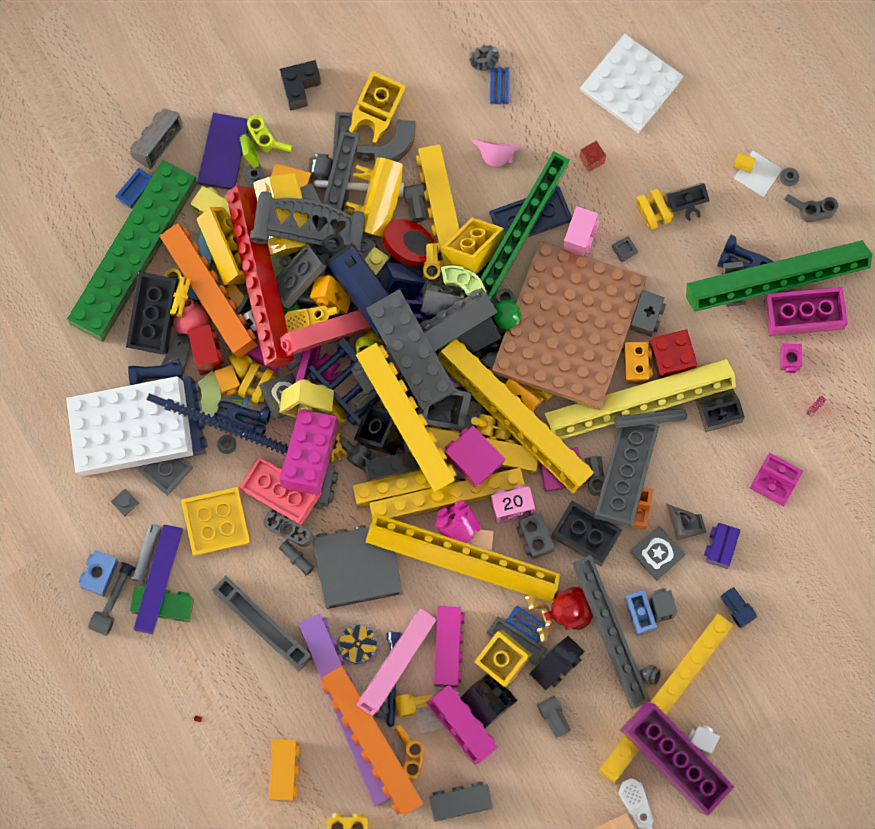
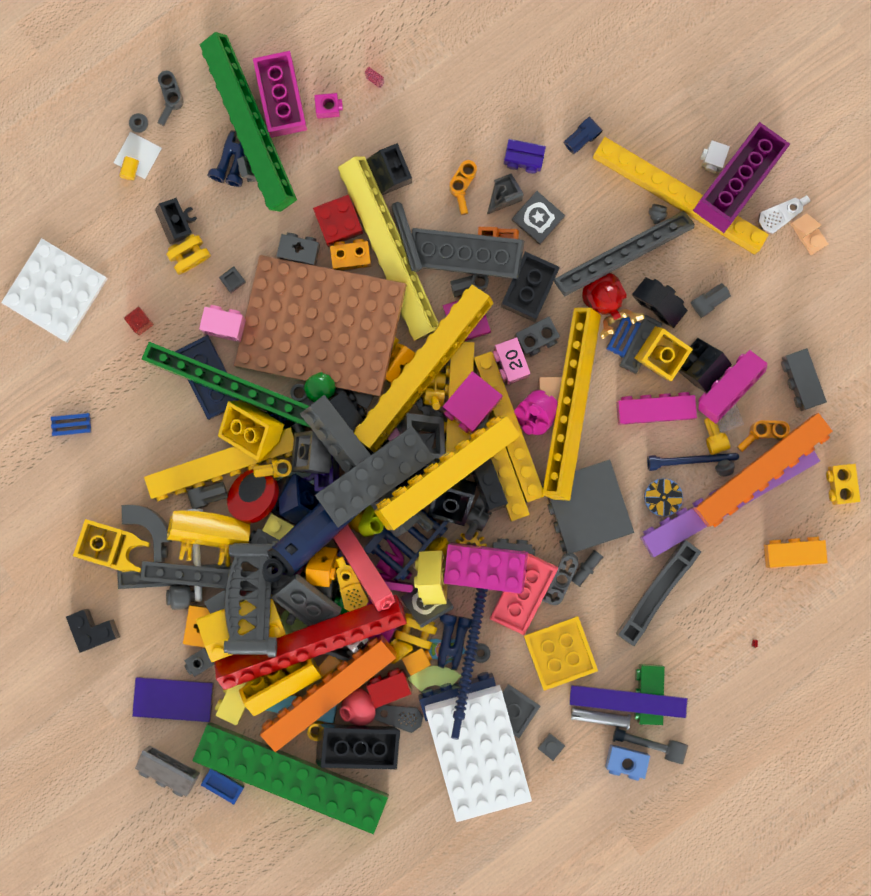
camera: 100 degrees left, 10 degrees up
(140, 373) = (416, 723): dark blue piece -> none
(180, 296) = (340, 720): yellow pin -> none
(249, 151) = (172, 671): lime tile -> none
(263, 133) = (149, 661): neon yellow beam -> none
(396, 662) = (683, 455): bright pink brick -> none
(461, 278) = (289, 434): yellowish green tile -> none
(482, 64) = (51, 443): dark grey gear -> none
(496, 154) = (146, 418): bright pink hat -> none
(640, 613) = (602, 227): medium blue brick -> none
(662, 605) = (593, 206): dark grey brick -> none
(707, 478) = (465, 180): none -> light orange beam
(776, 479) = (451, 110): dark pink slope -> none

